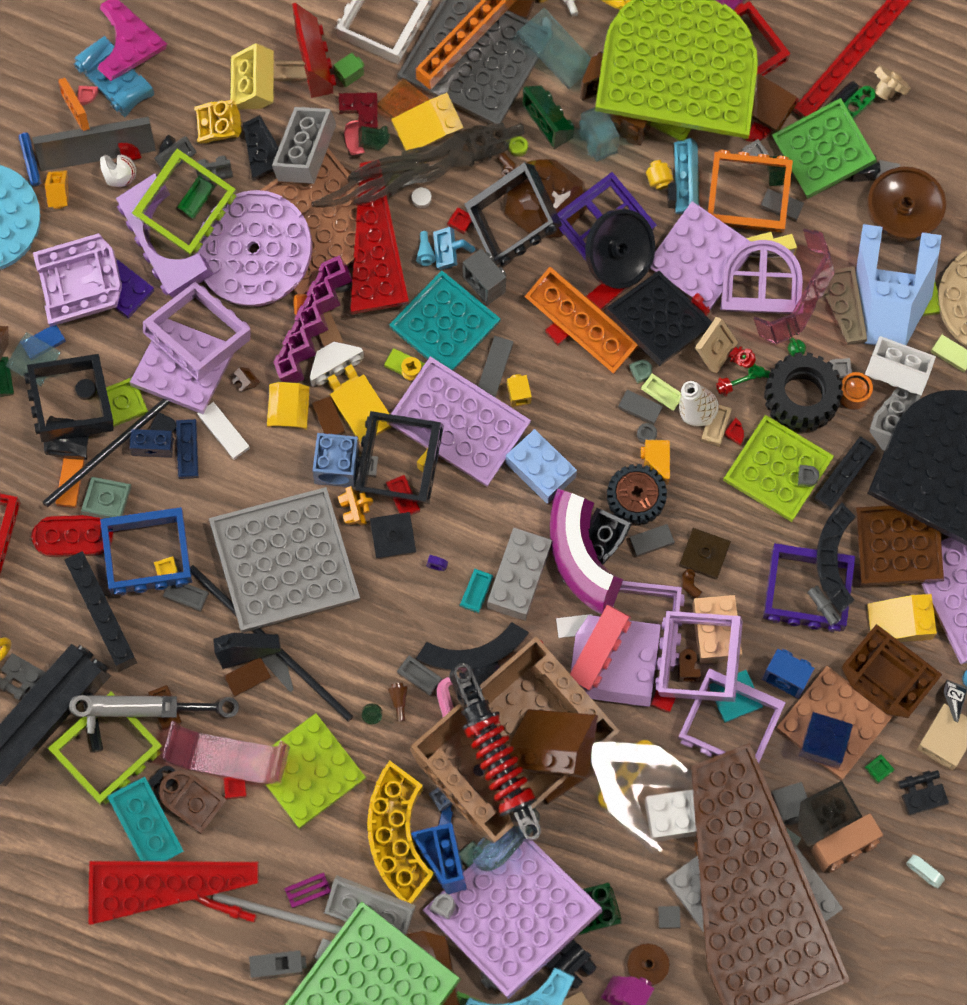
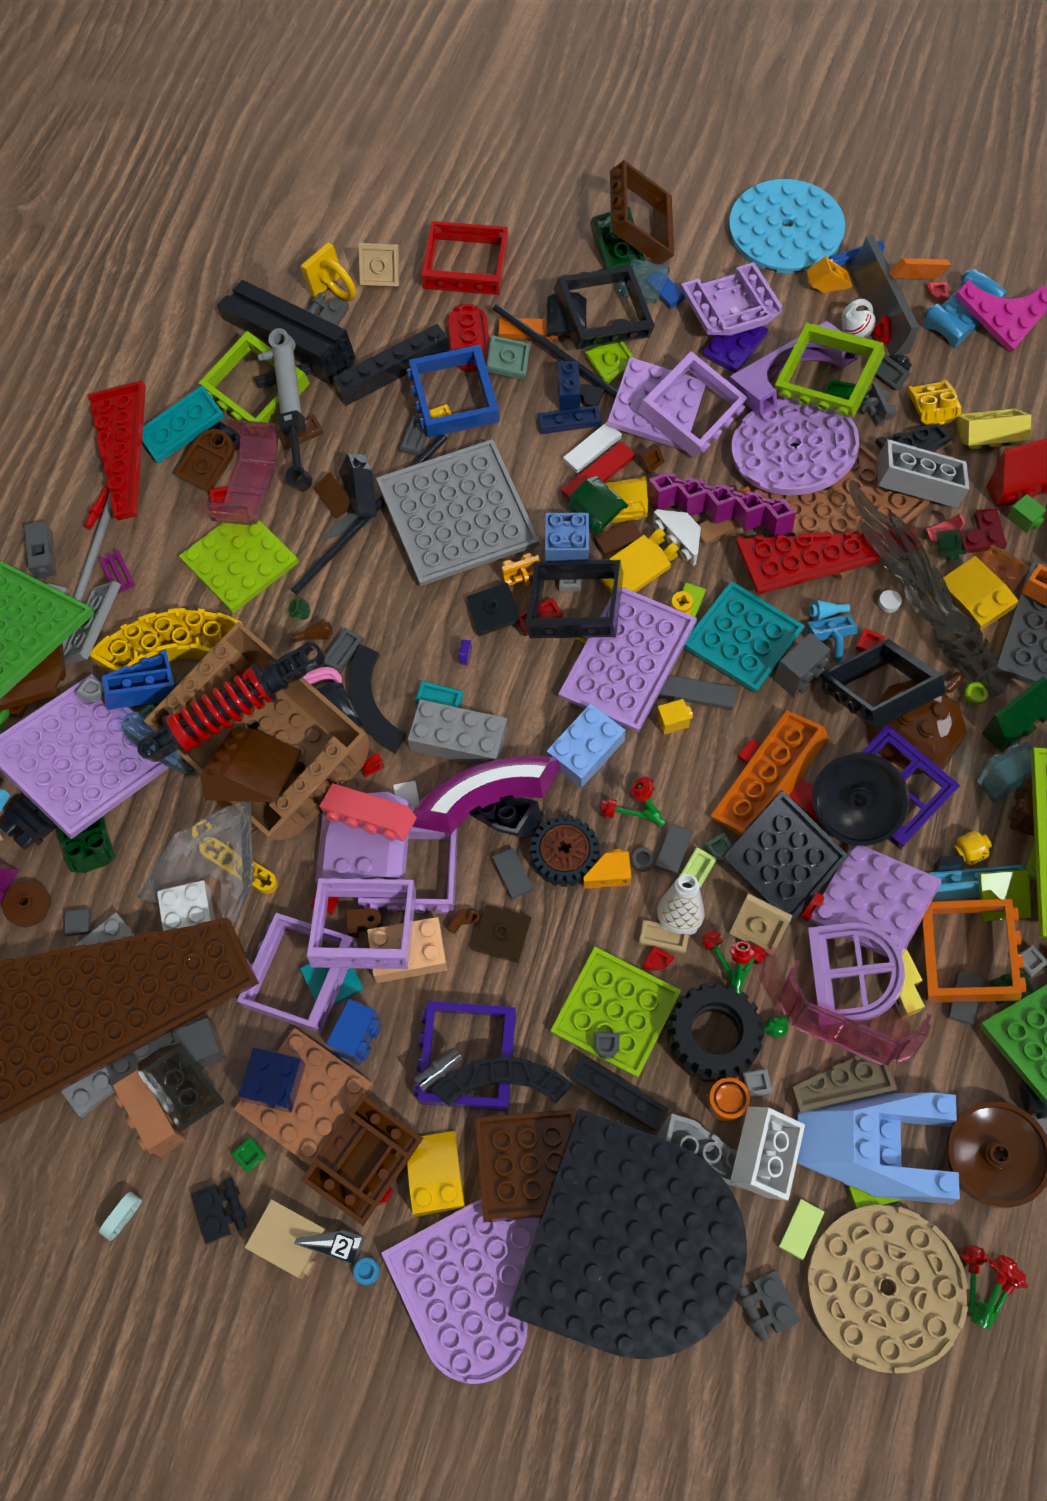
camera: 90 degrees right, 5 degrees down
(253, 428) = (603, 468): none -> red tile
(295, 430) = (599, 501): none -> dark green slope
(598, 419) = (641, 791): none -> plant
(700, 158) = (1006, 885): none -> lime tile

